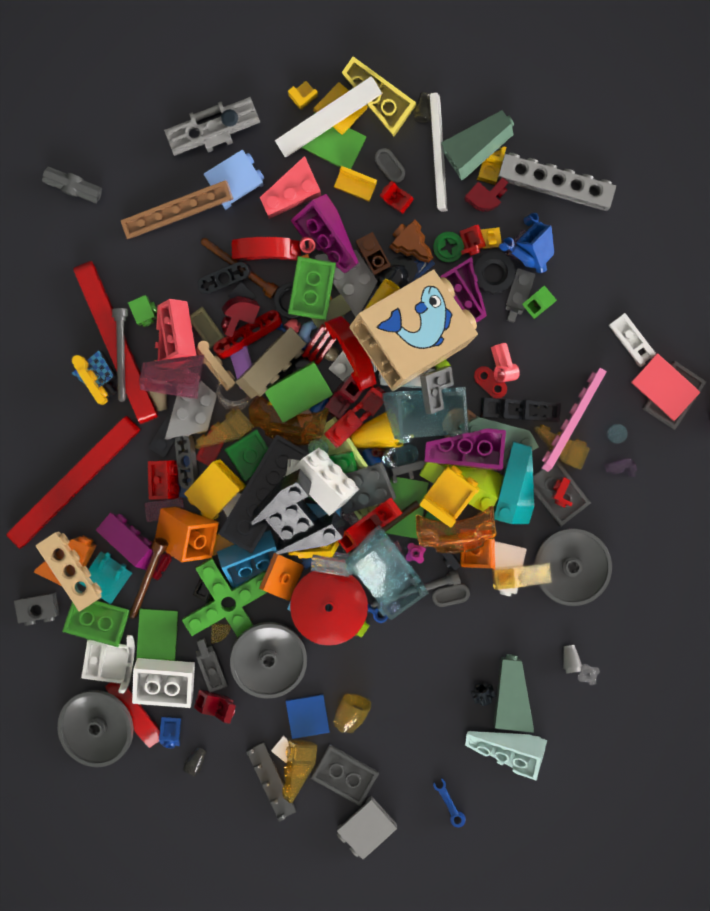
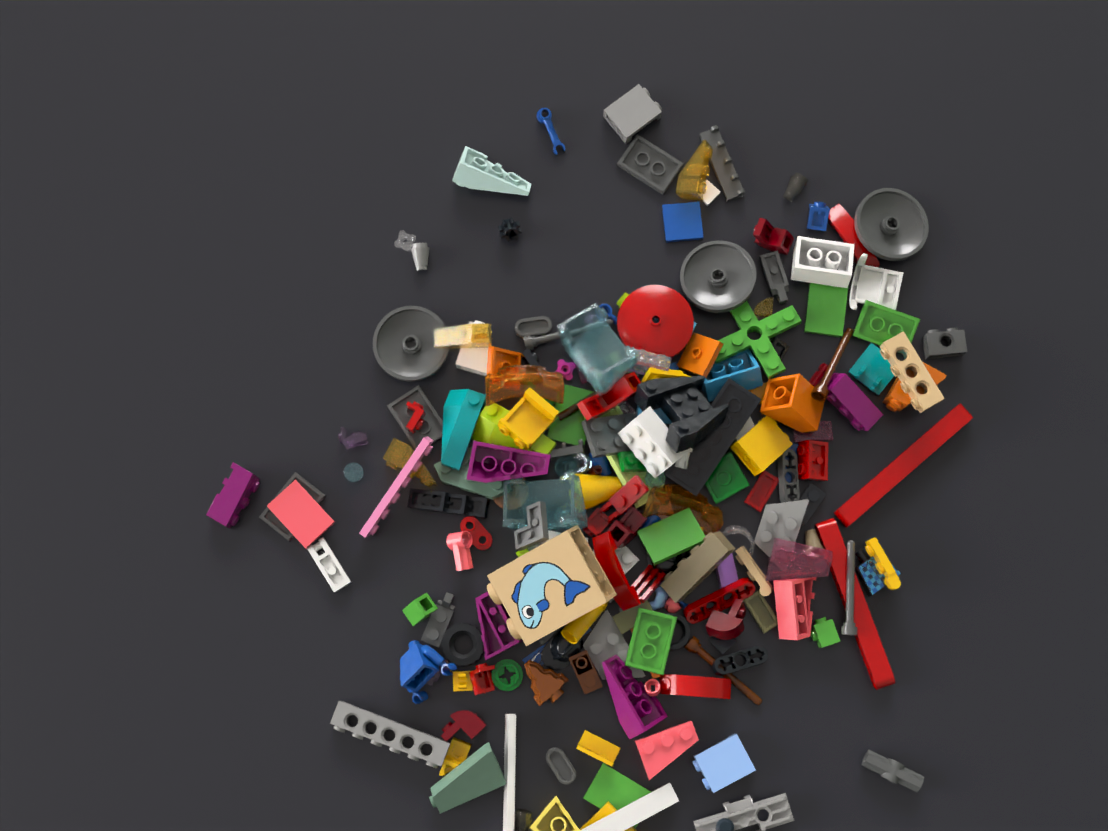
camera: 175 degrees left, 10 degrees down
(177, 209) = (784, 734): medium nougat plate -> none
(230, 430) = (741, 504): clear yellow slope -> none
(332, 354) = (634, 573): dark tan hinge -> none
(348, 717) = (642, 216): clear yellow helmet -> none
(396, 197) = (557, 730): red bracket -> none
(512, 699) = (482, 222): sand green slope -> none

